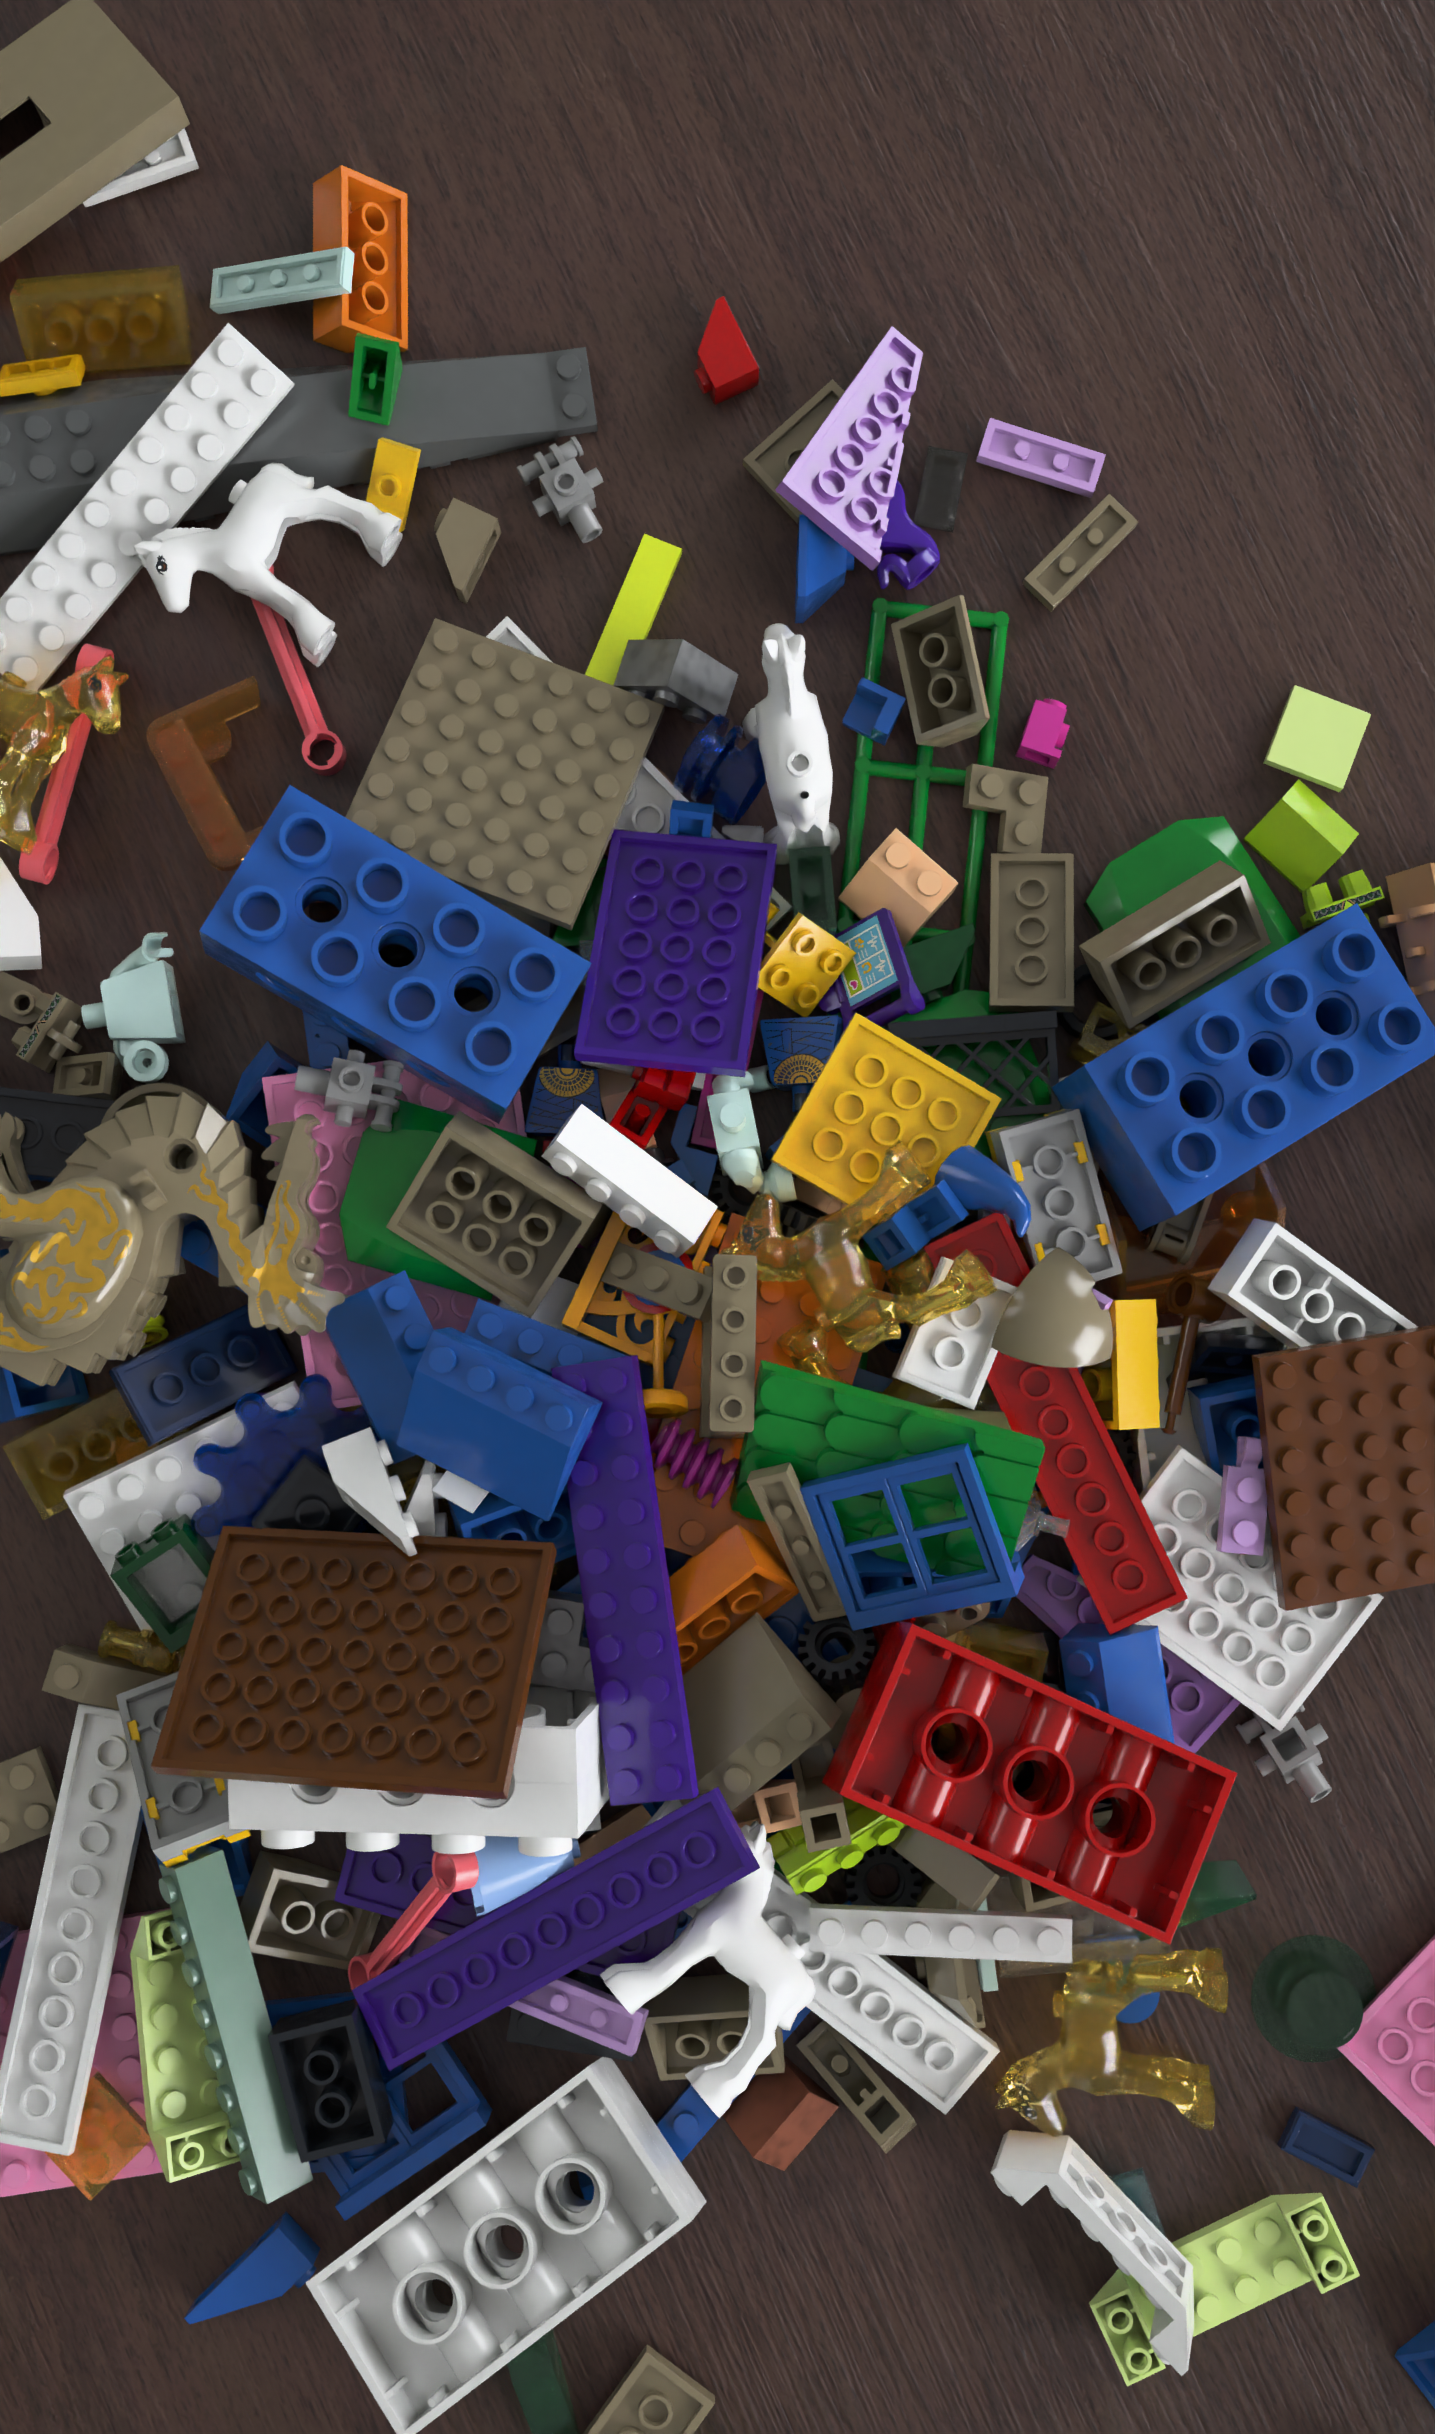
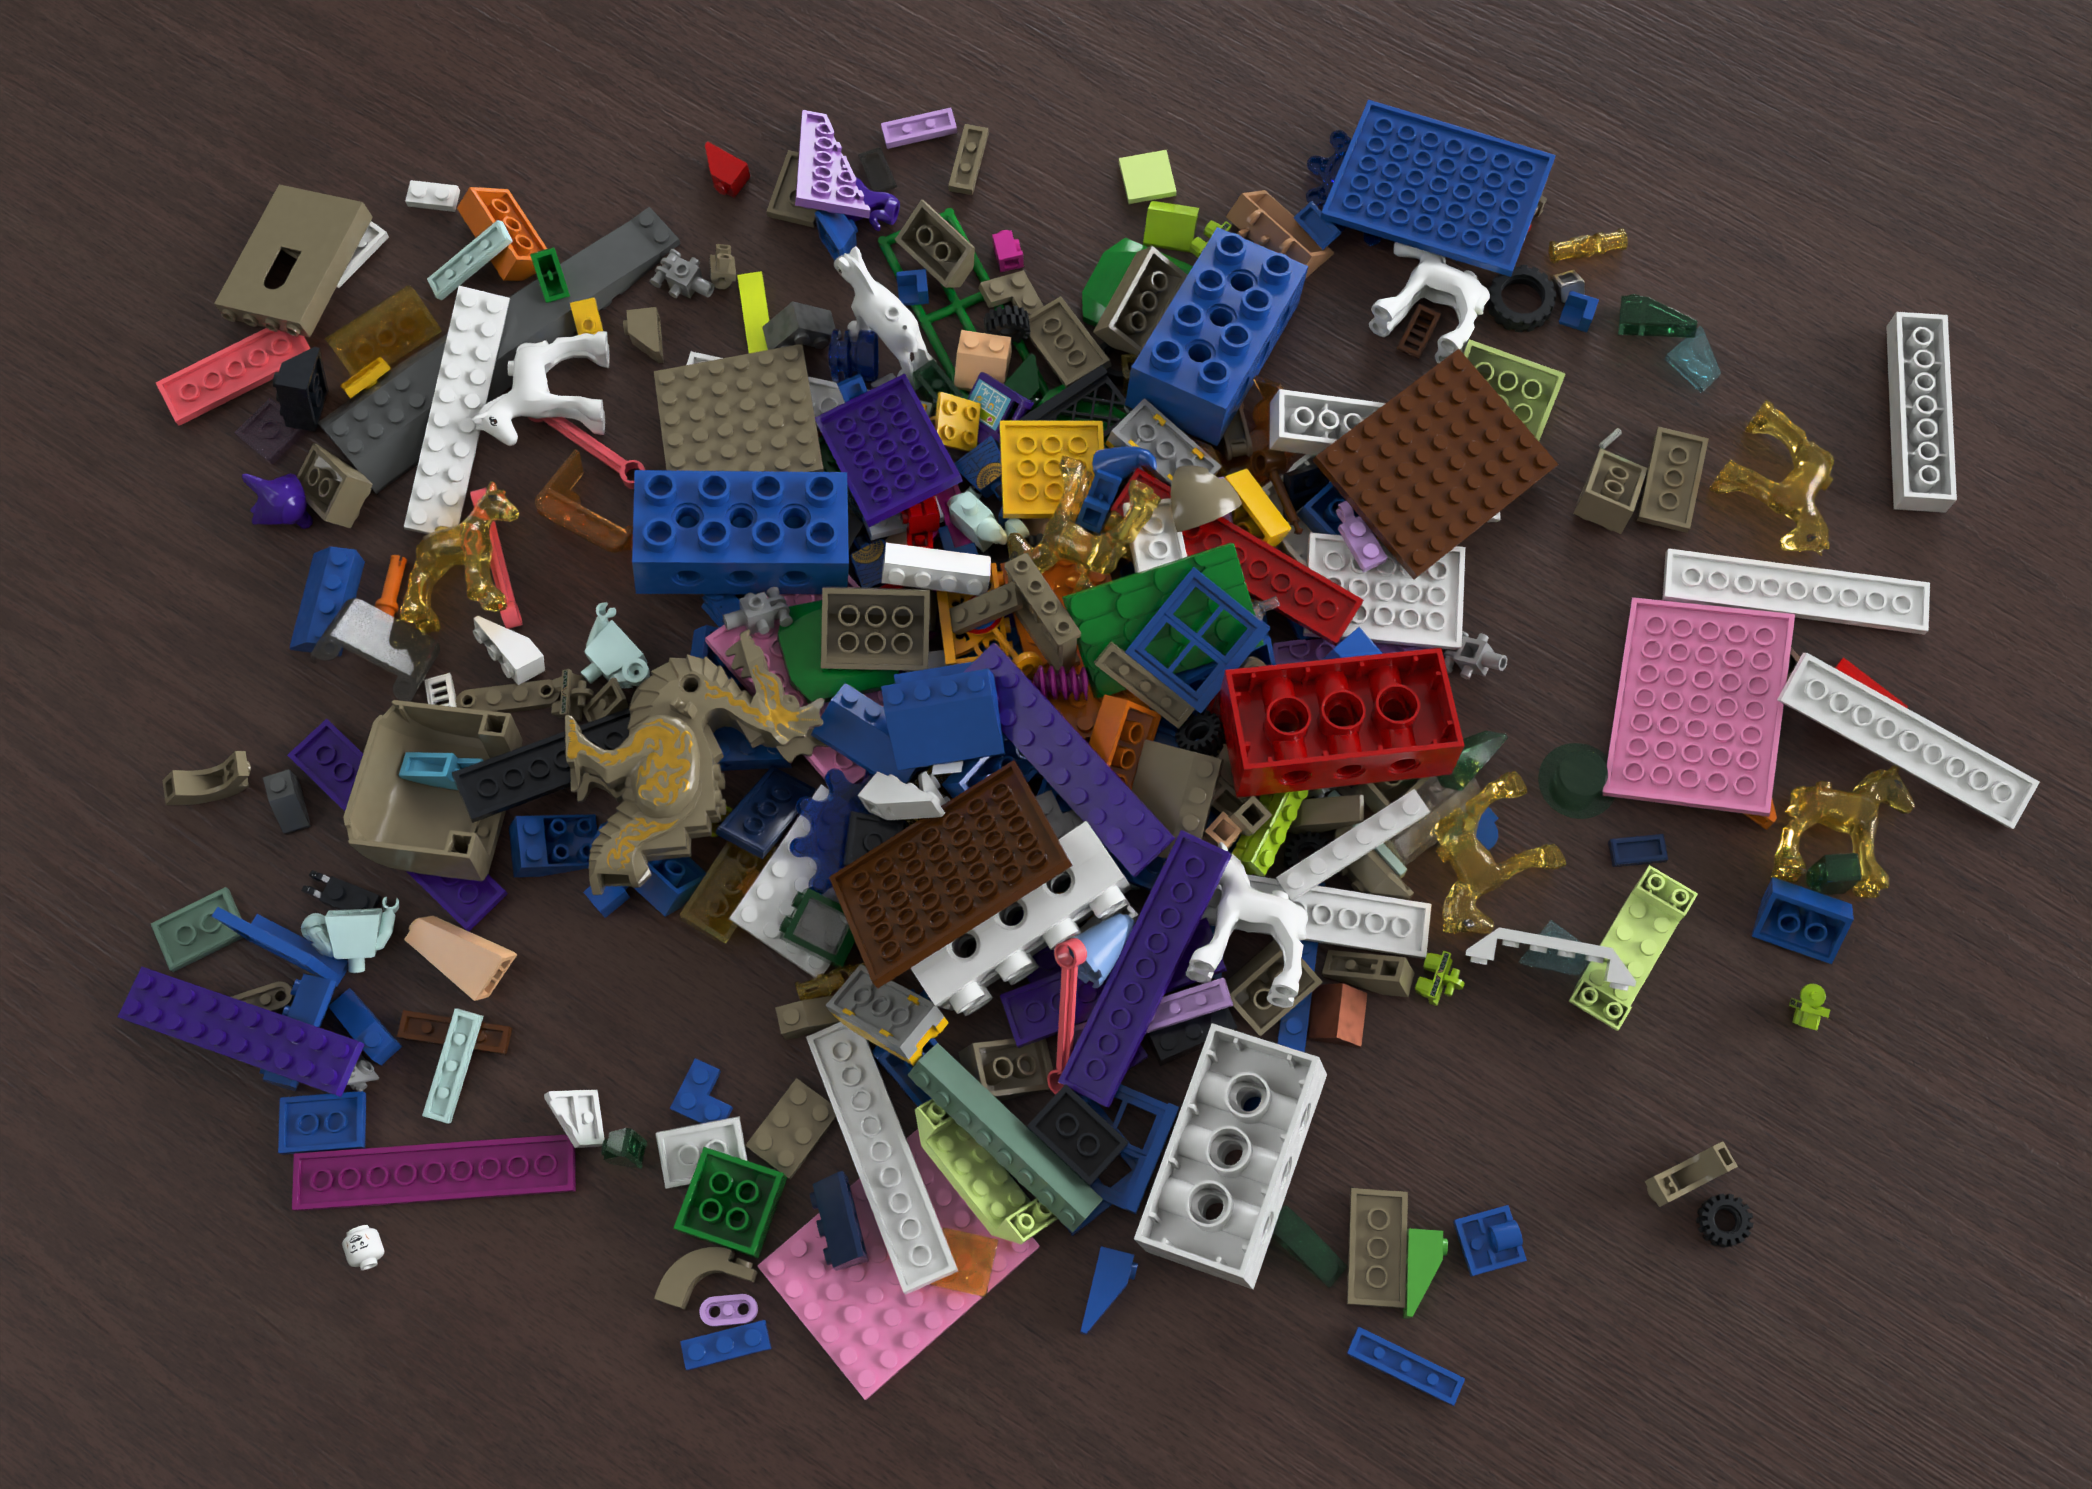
camera: 30 degrees left, 15 degrees down
(295, 139) = (432, 196): none -> white plate
(629, 509) = (722, 267): none -> dark tan hips
(928, 2162) = (1433, 988): none -> lime hips
(967, 857) = (1008, 322): none -> black tyre

